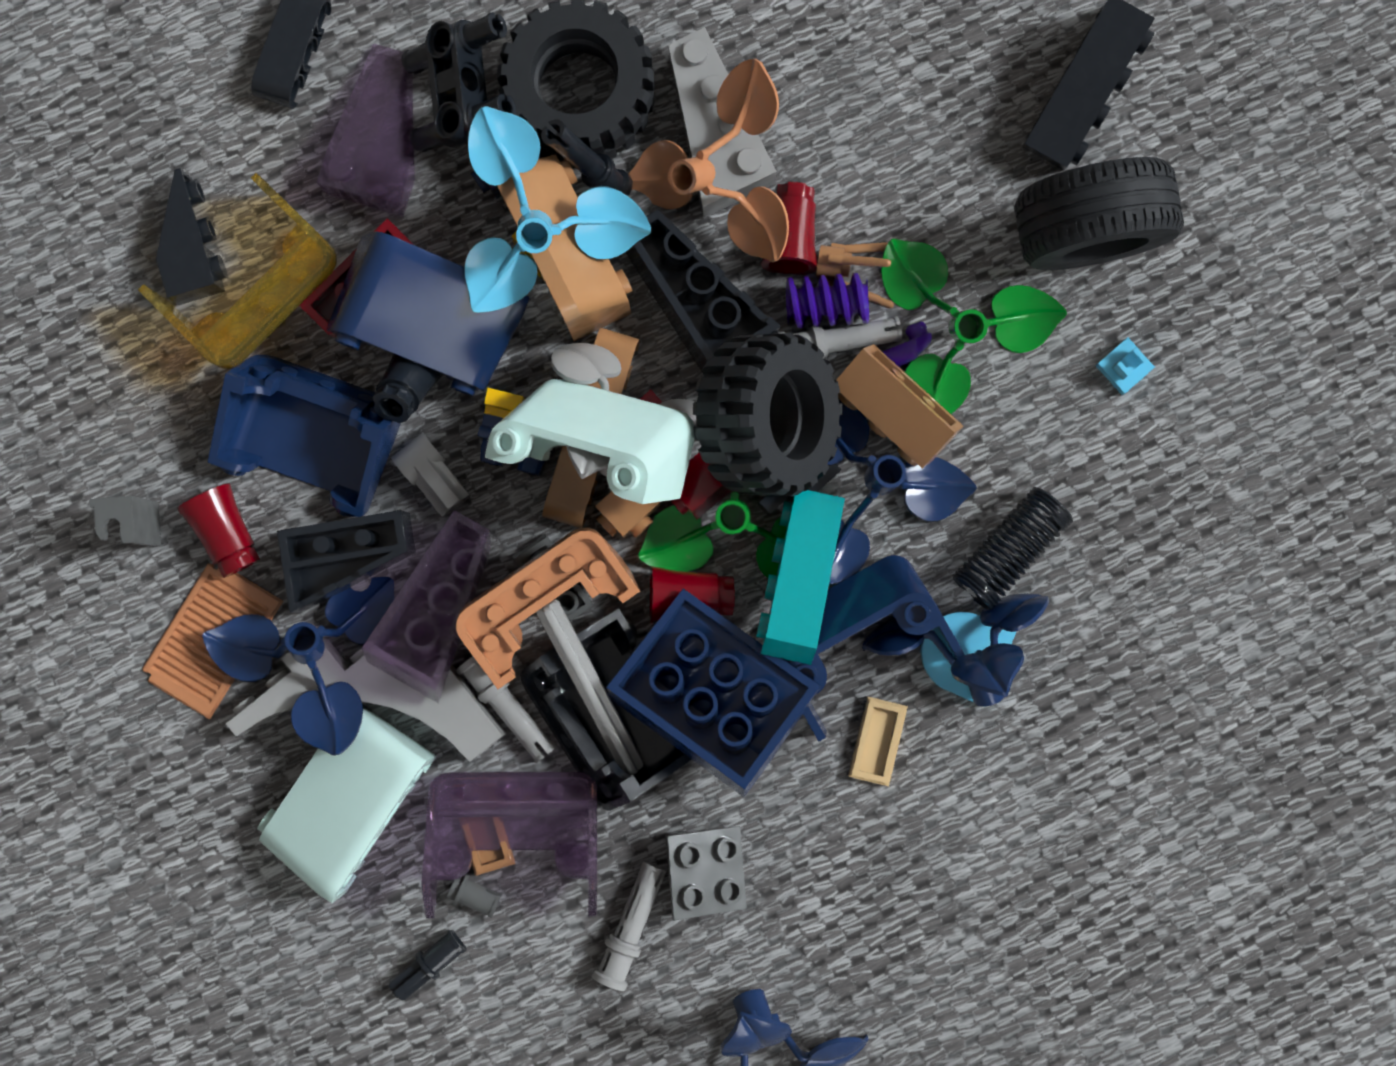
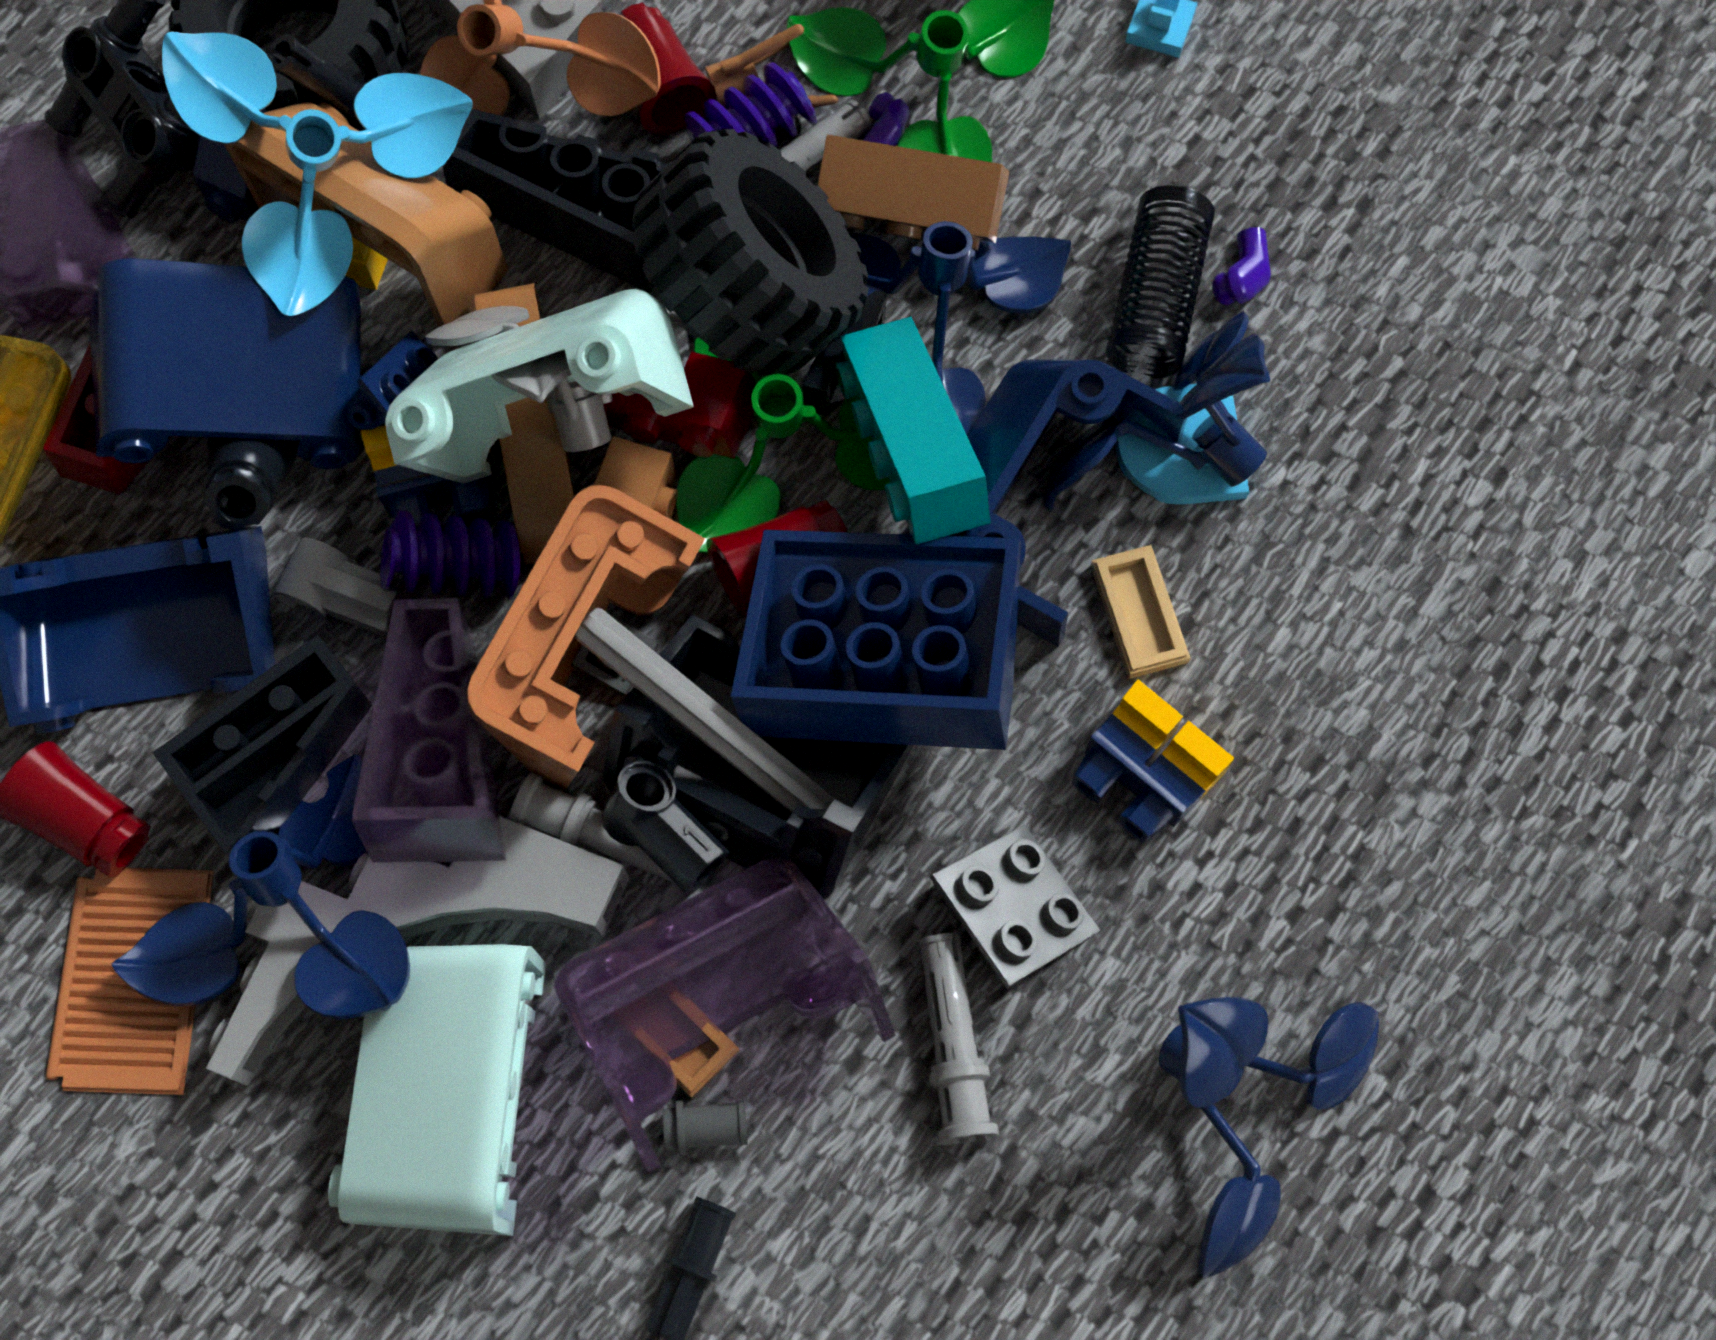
camera: 30 degrees left, 15 degrees down
(501, 491) = (450, 553): none -> dark purple piece
(522, 370) = (387, 380): none -> dark blue hinge
(534, 733) = (661, 825): none -> black piece
(834, 852) = (1126, 746): none -> dark blue hips
(1071, 568) = (1249, 274): none -> dark purple arm

